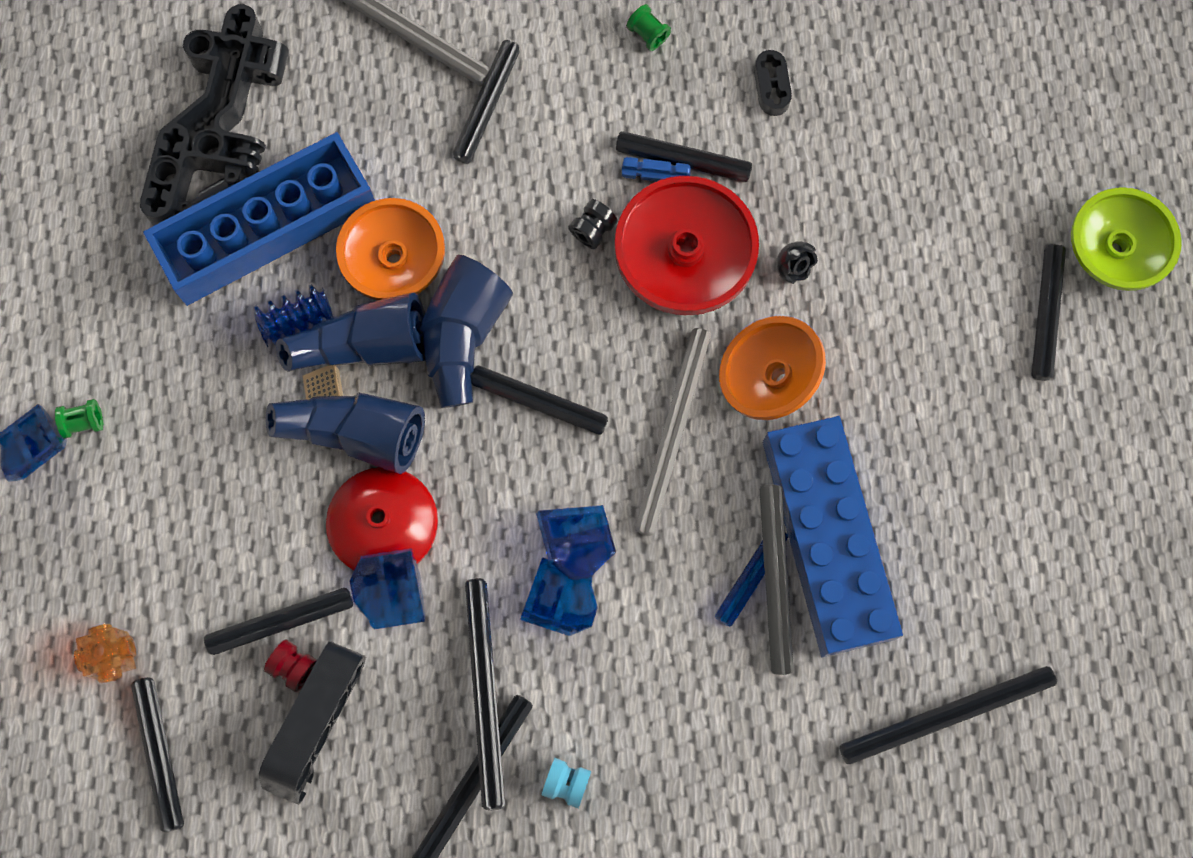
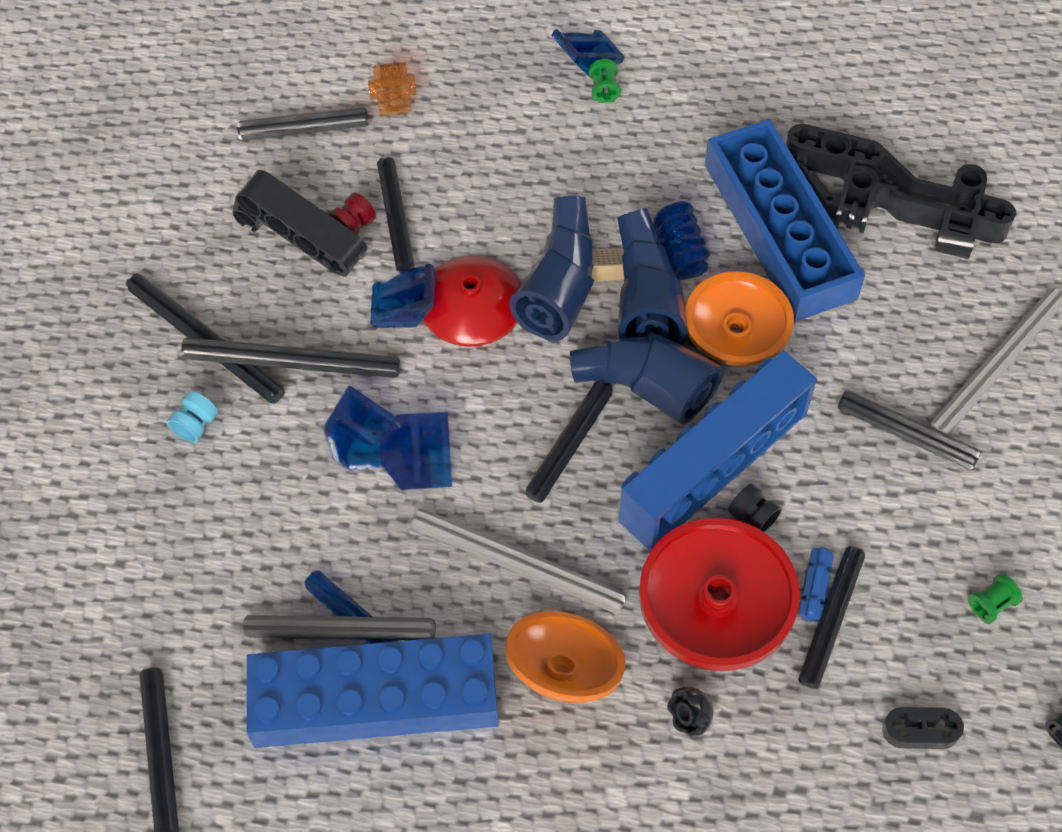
camera: 100 degrees right, 15 degrees down
(544, 255) = (715, 449): none -> blue brick

